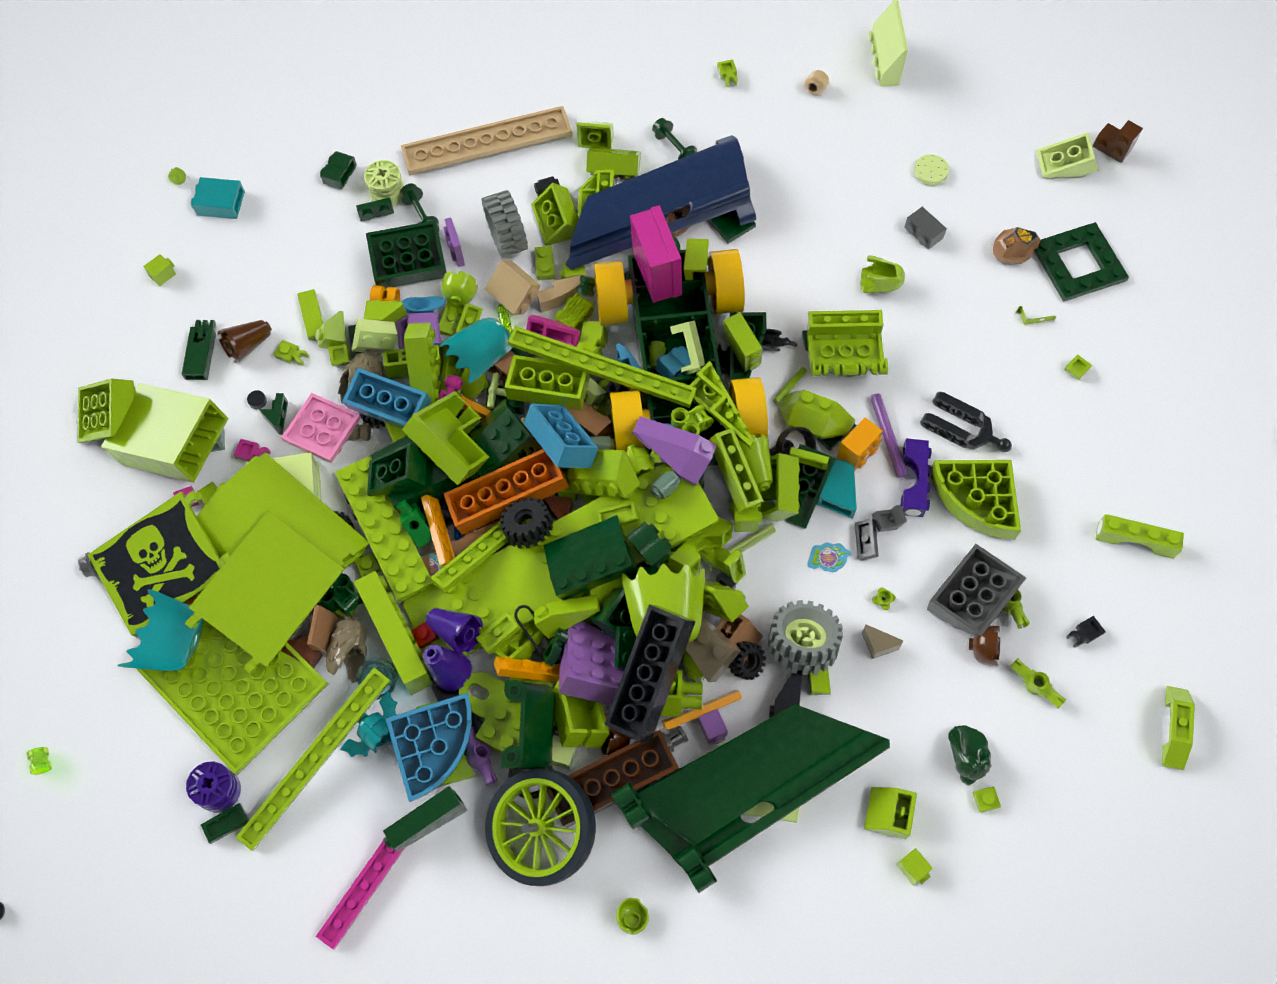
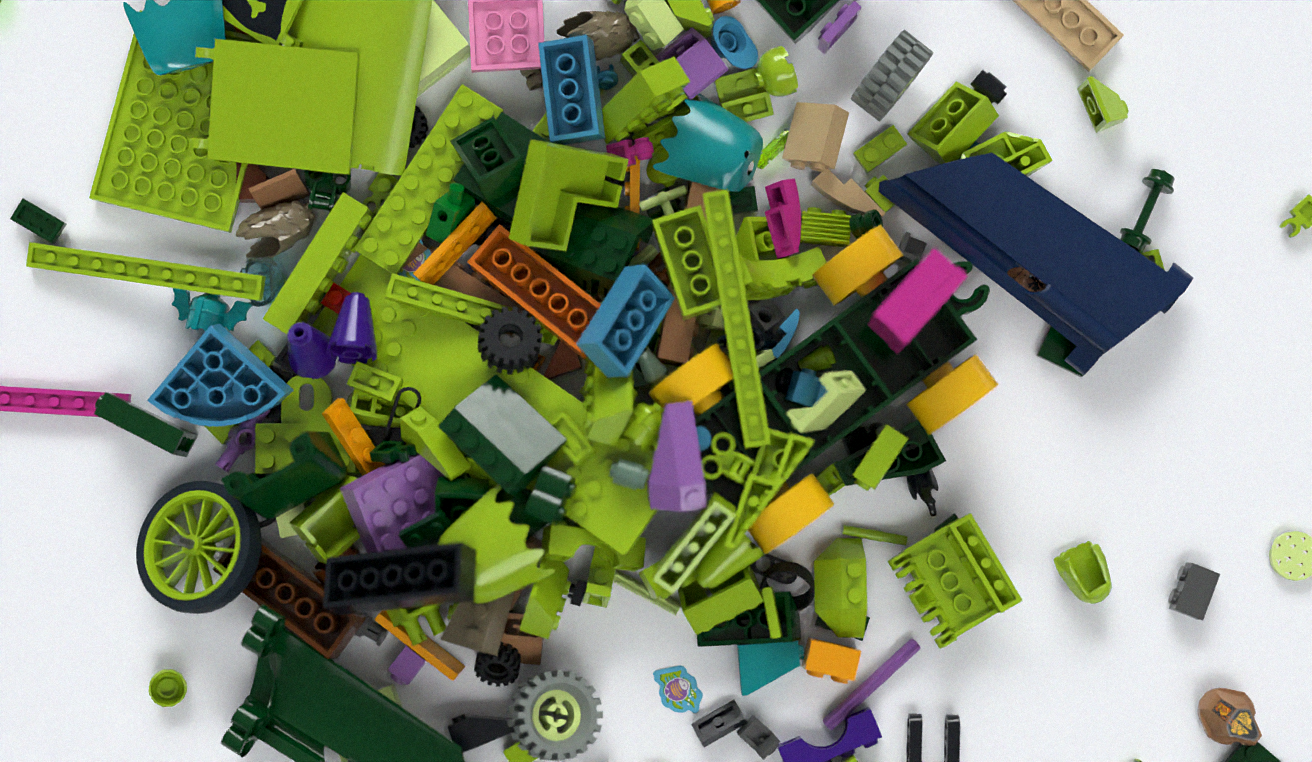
camera: 60 degrees right, 20 degrees up
(224, 789) = (71, 197): dark purple wheel -> none
(621, 161) = (1075, 148): lime slope -> none
(696, 257) = (952, 345): lime panel -> none

